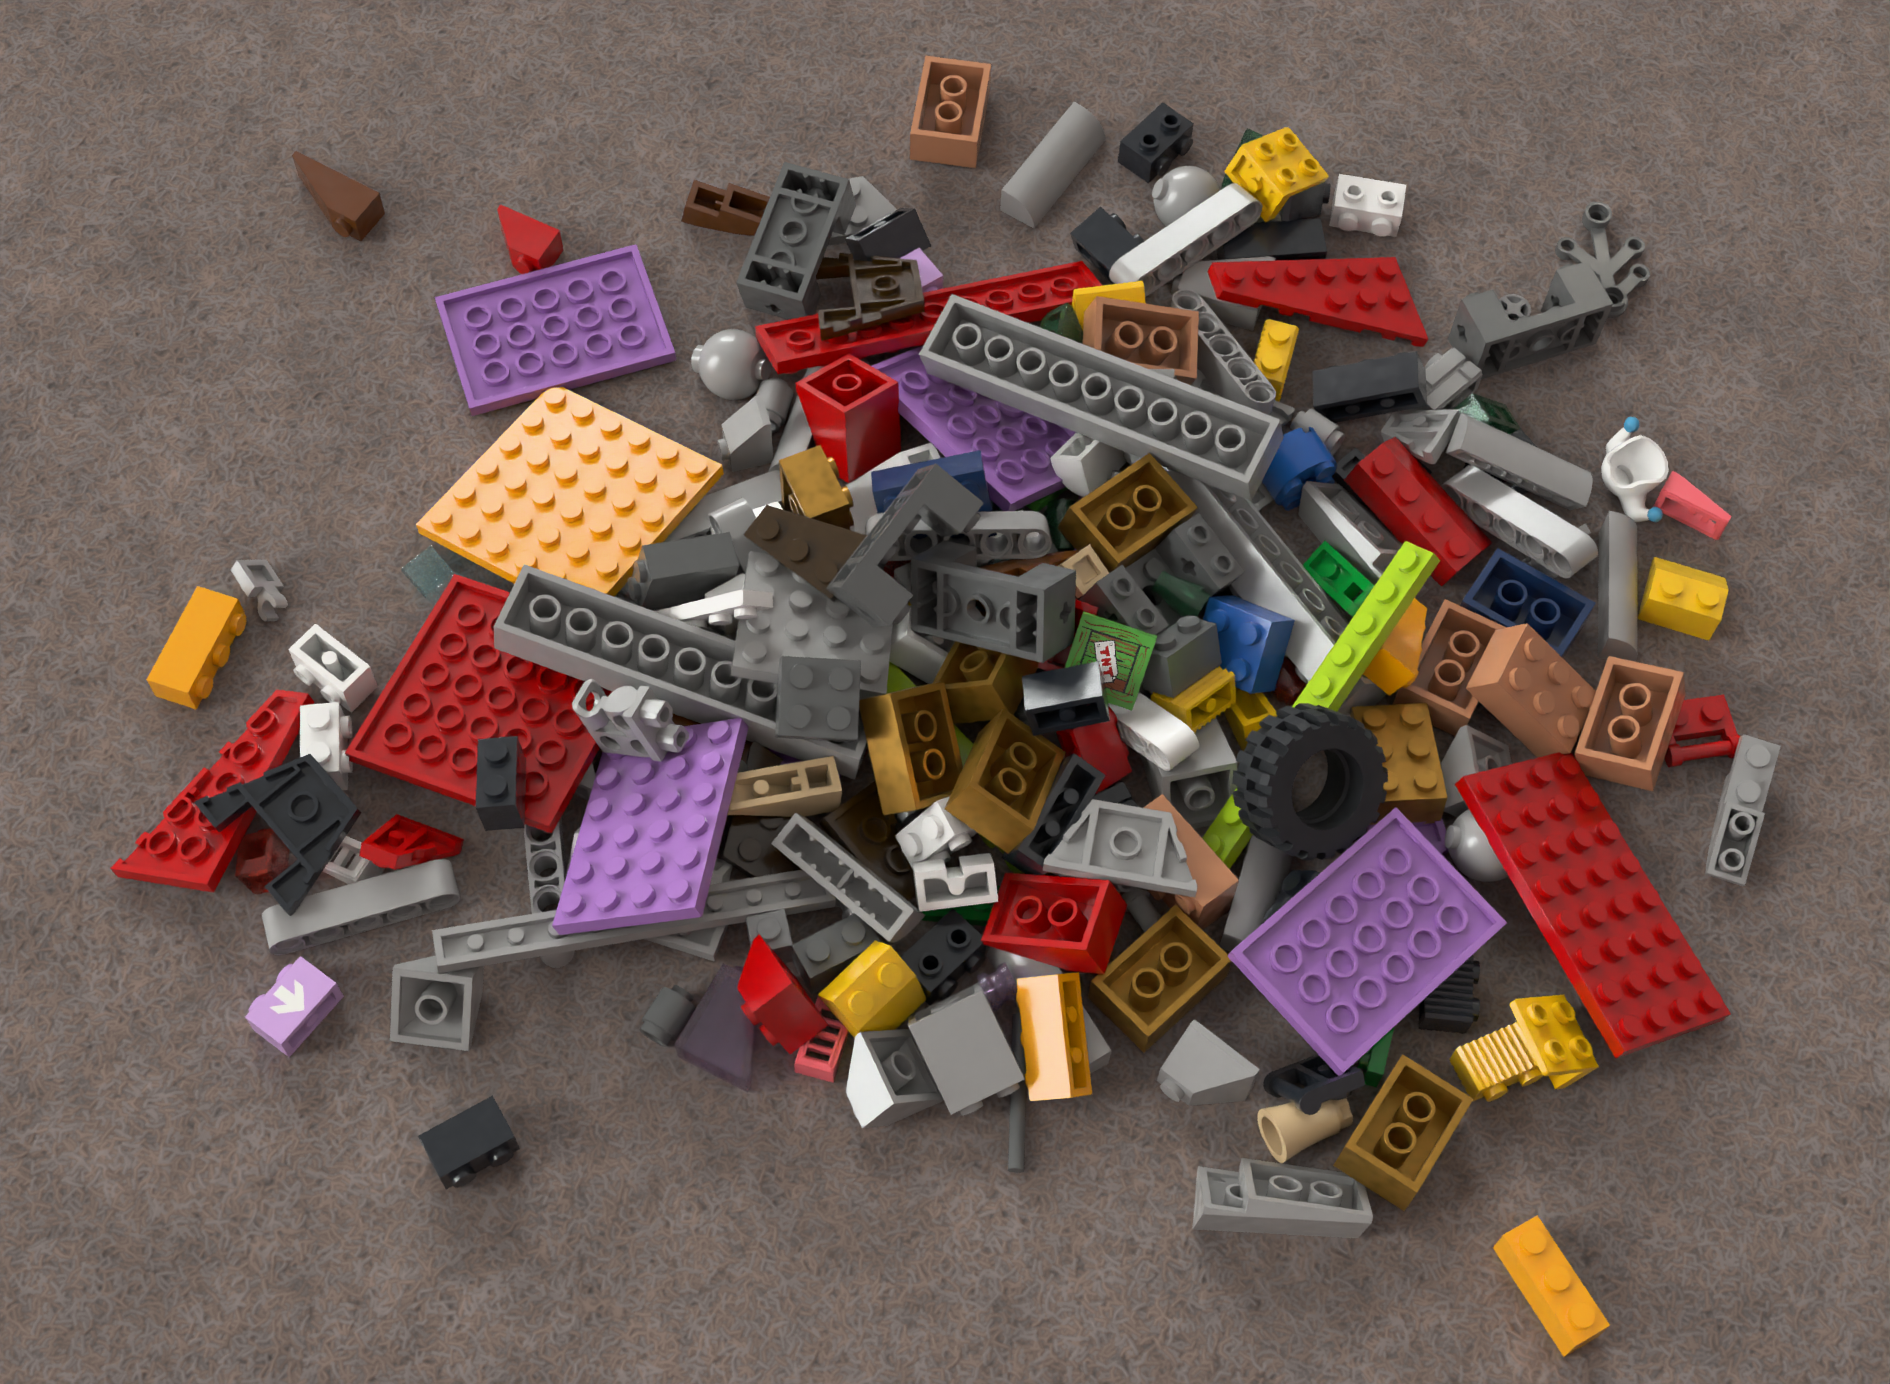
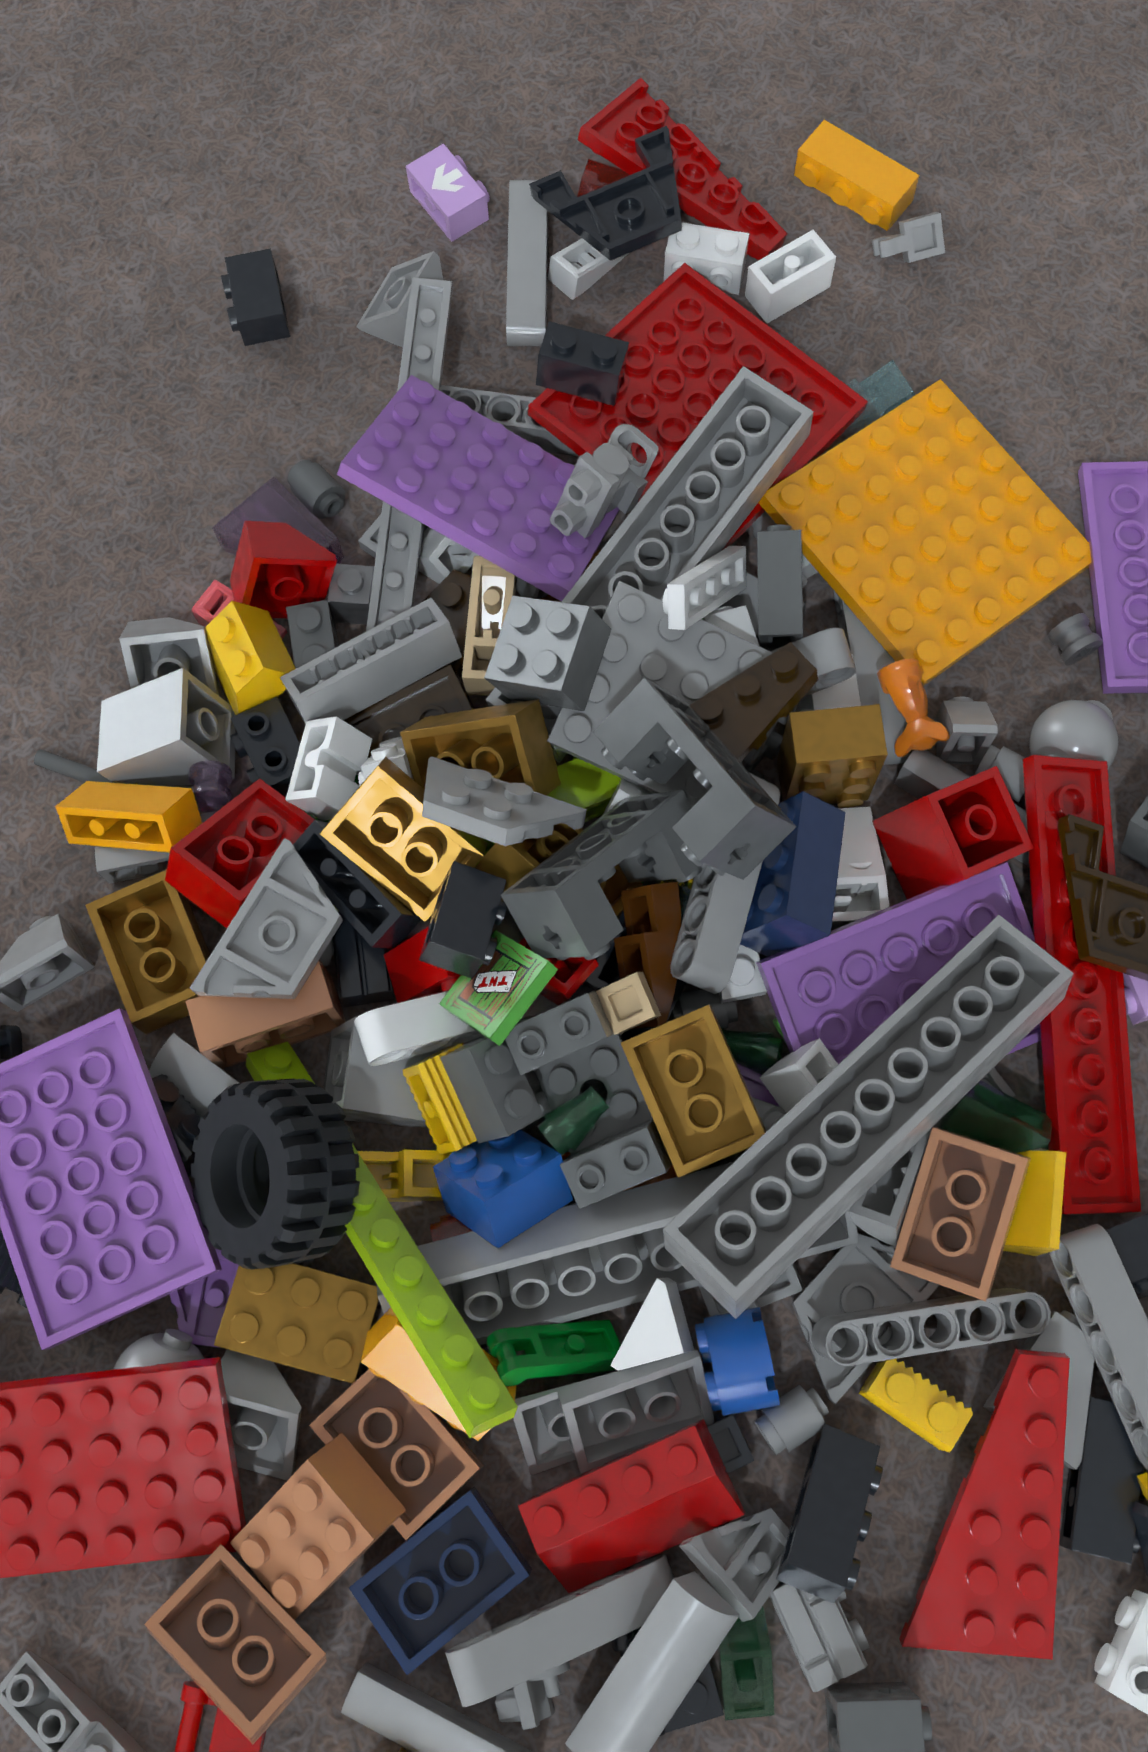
camera: 115 degrees right, 10 degrees up
(408, 843) = (574, 295): red wing -> none
(637, 383) = (1075, 638): none -> flat silver wheel
(737, 472) = (907, 691): none -> orange animal
(966, 706) = (492, 807): none -> light grey wing
(1305, 513) = (657, 1330): none -> white slope

